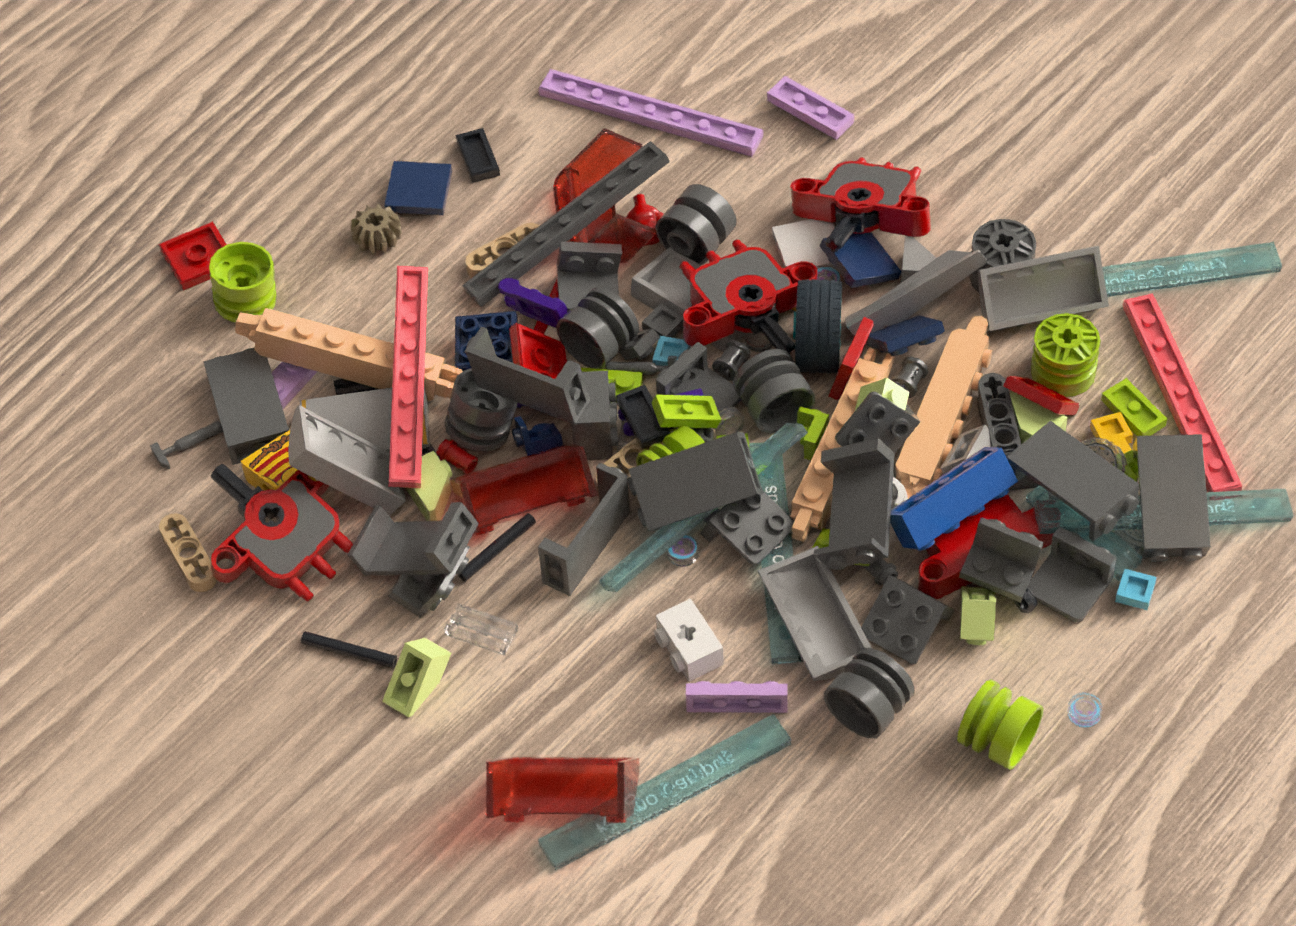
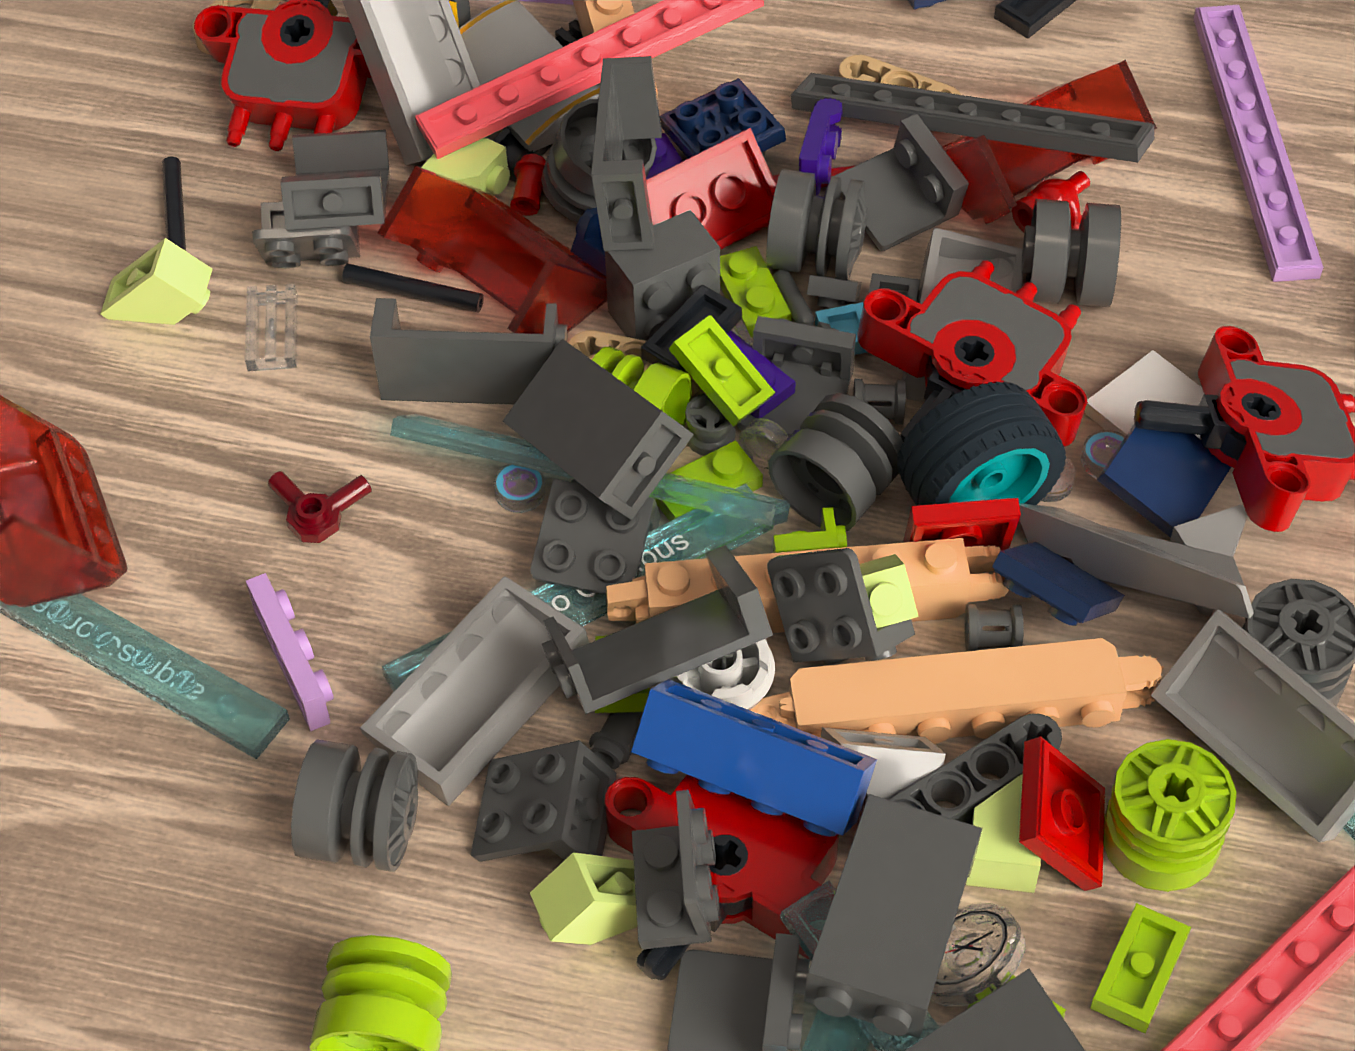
camera: 60 degrees right, 0 degrees up
(644, 654) = (316, 515): none -> dark red piece
(689, 640) = (359, 554): white brick -> none
(1113, 428) = (1070, 954): yellow plate -> none

